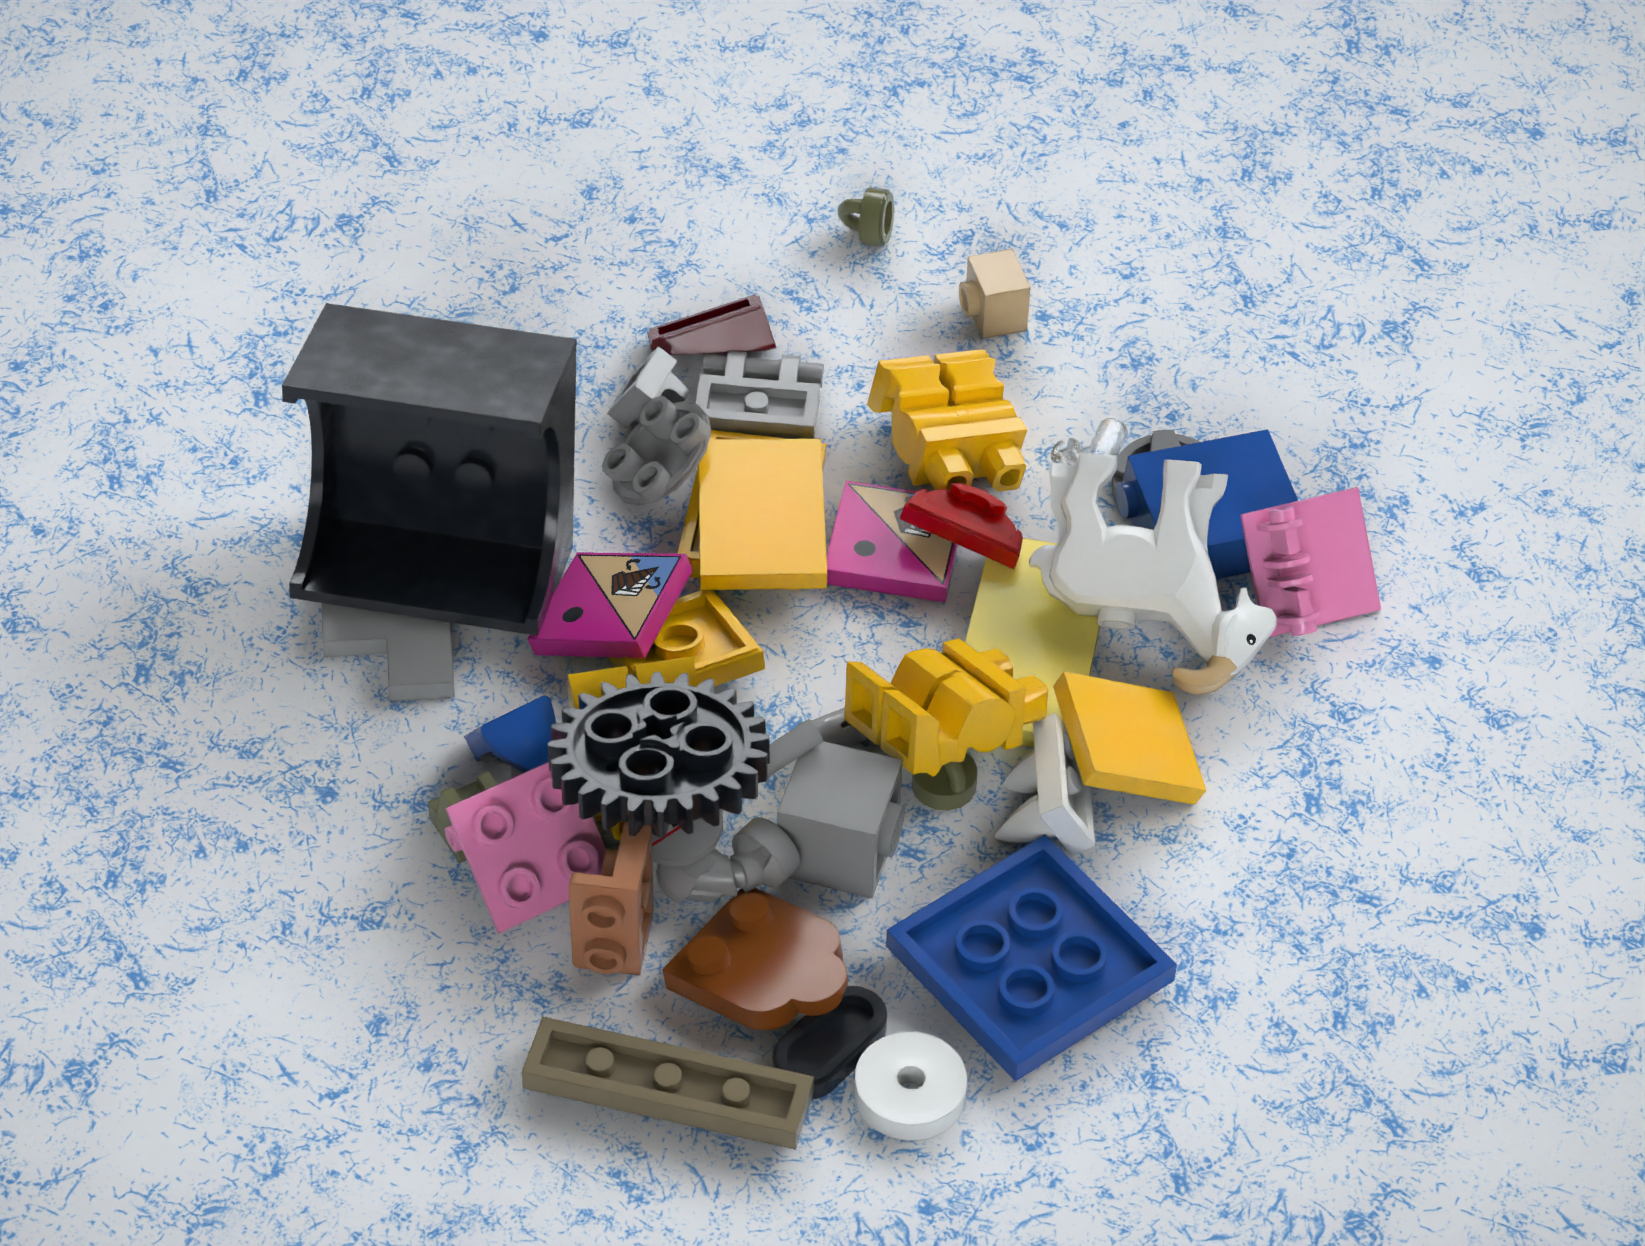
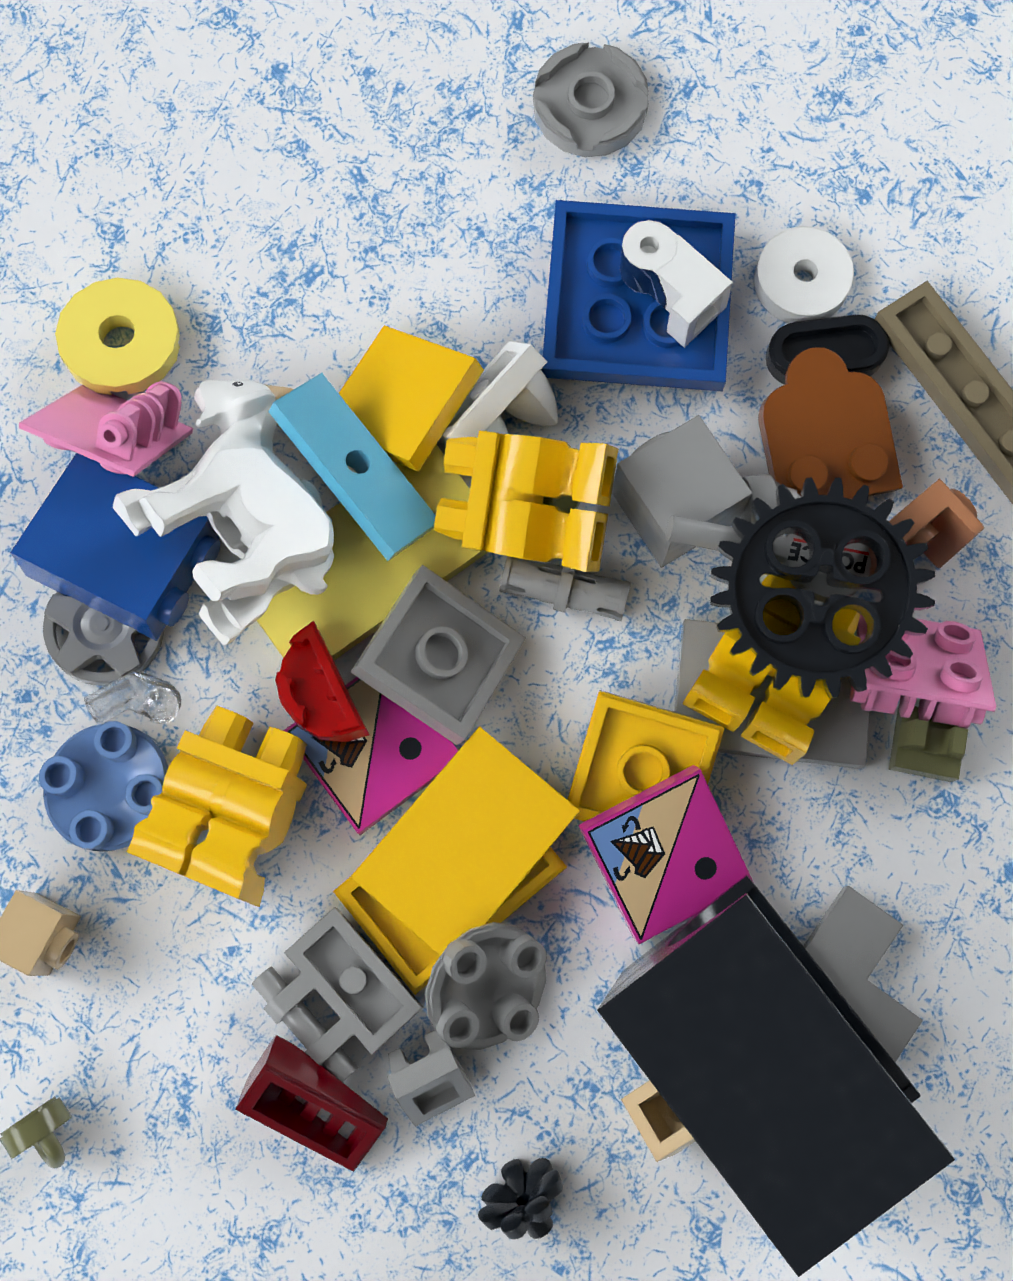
camera: 135 degrees left, 30 degrees up
(518, 736) = (854, 777): blue tile -> none
(904, 595) = (439, 655): none -> light grey plate
(1008, 946) = (675, 276): none -> white leg
(1054, 393) = (102, 785): none -> medium blue dish
(1141, 650) = (335, 438): none -> medium azure tile
(1250, 1096) = (590, 99): none -> light grey tile
(1399, 615) = (113, 305): none -> light yellow tile

